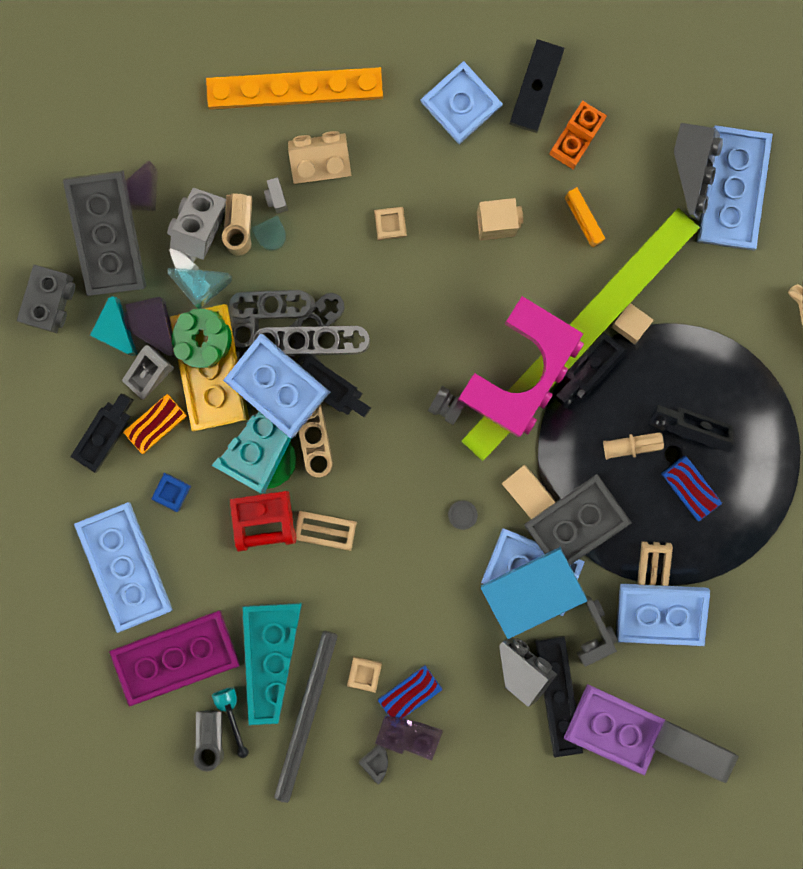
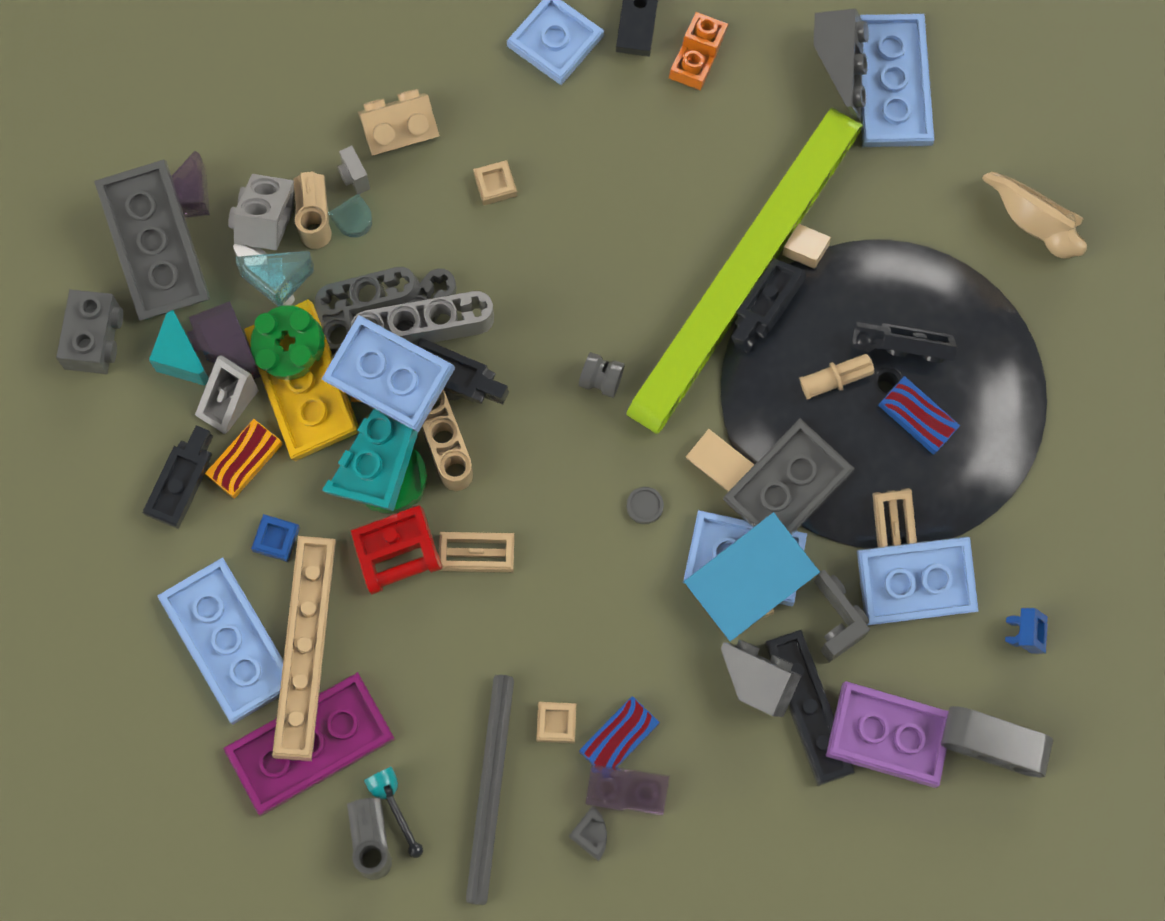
camera: 10 degrees left, 15 degrees down
(181, 585) = (304, 649): none -> tan tile
(268, 654) = (429, 716): teal wing -> none
(294, 88) = (356, 53): light orange plate -> none
(499, 219) = (623, 149): tan brick -> none
(556, 343) = (684, 356): dark pink arch -> none
(584, 217) = (725, 137): light orange tile -> none
(742, 669) = (1032, 630): none -> blue tile

